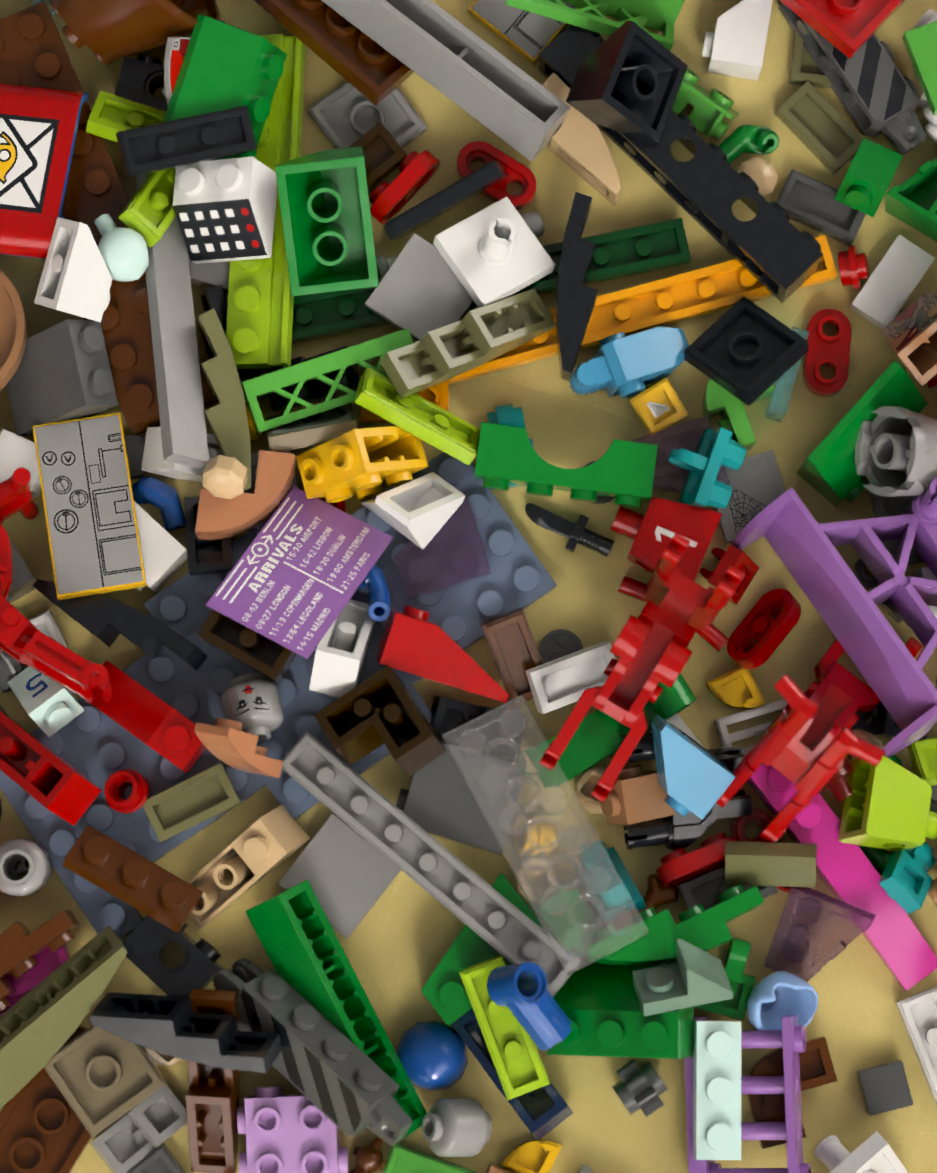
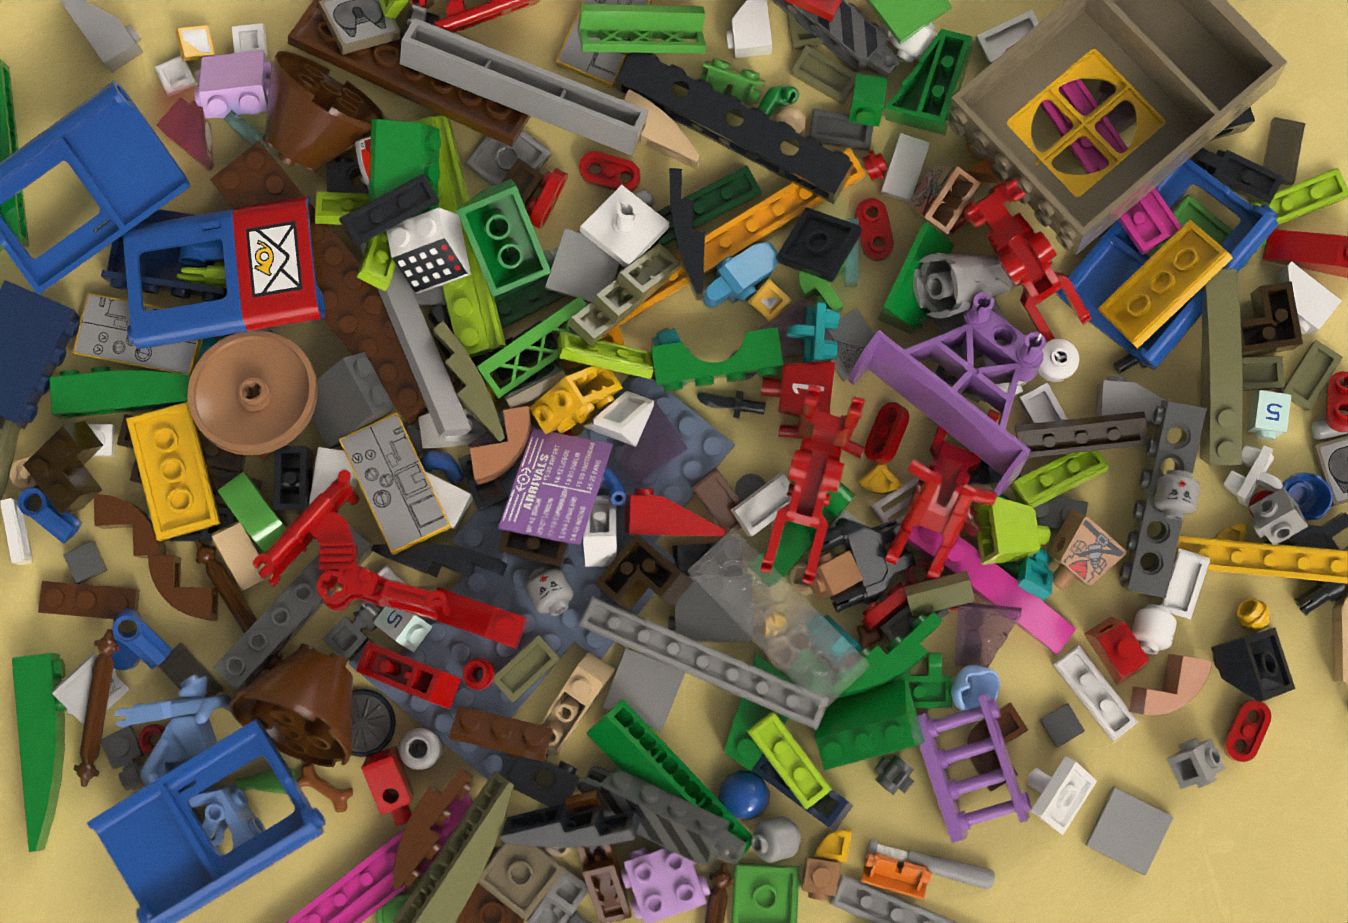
camera: 15 degrees left, 0 degrees up
(74, 273) = (338, 324): white slope -> none
(122, 250) = (365, 299): light aqua piece -> none
(224, 477) = (485, 436): tan tile -> none
(237, 747) = (548, 621): nougat slope -> none
(445, 200) = (580, 199): black tile -> none
(525, 993) = (797, 732): blue piece -> none
(628, 84) = (684, 82): black slope -> none
(687, 771) = (863, 547): slope -> none
(689, 982) = (907, 691): sand green slope -> none
(716, 1090) = (948, 760): light aqua plate -> none
(738, 560) = (848, 392): red tile -> none

